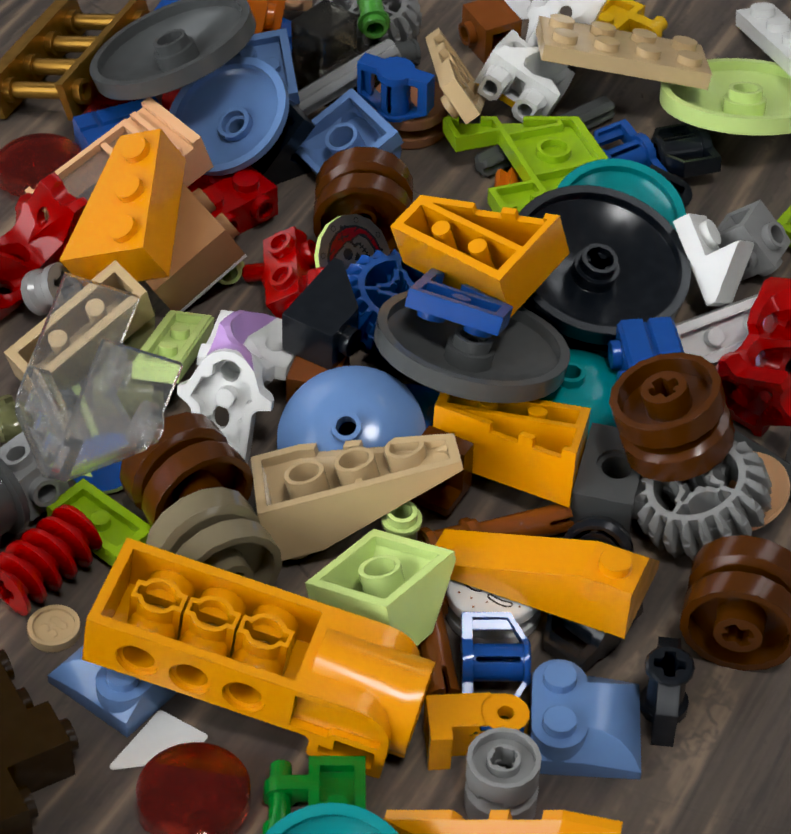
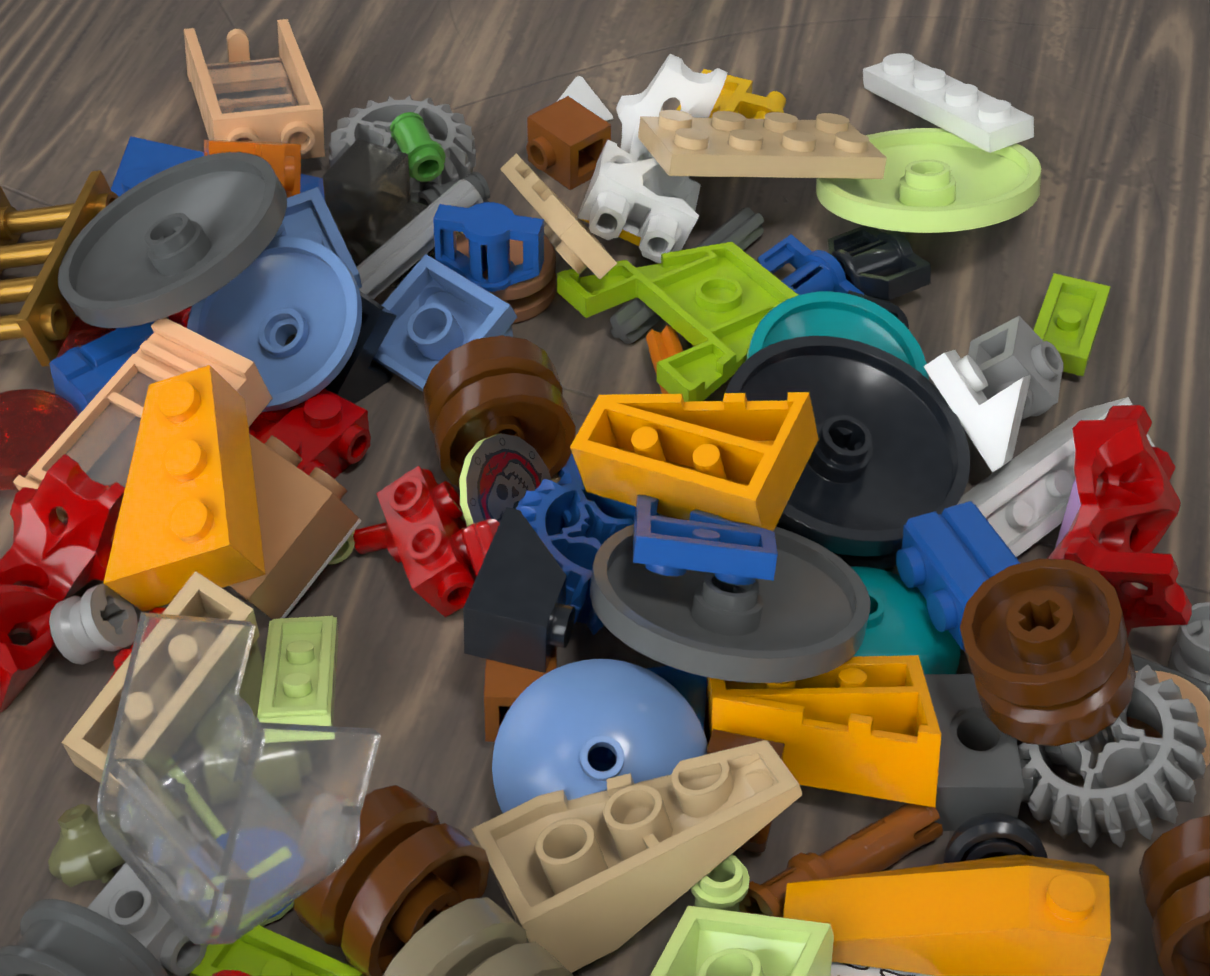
camera: 15 degrees left, 0 degrees up
(233, 373) = (412, 681): white hips -> none

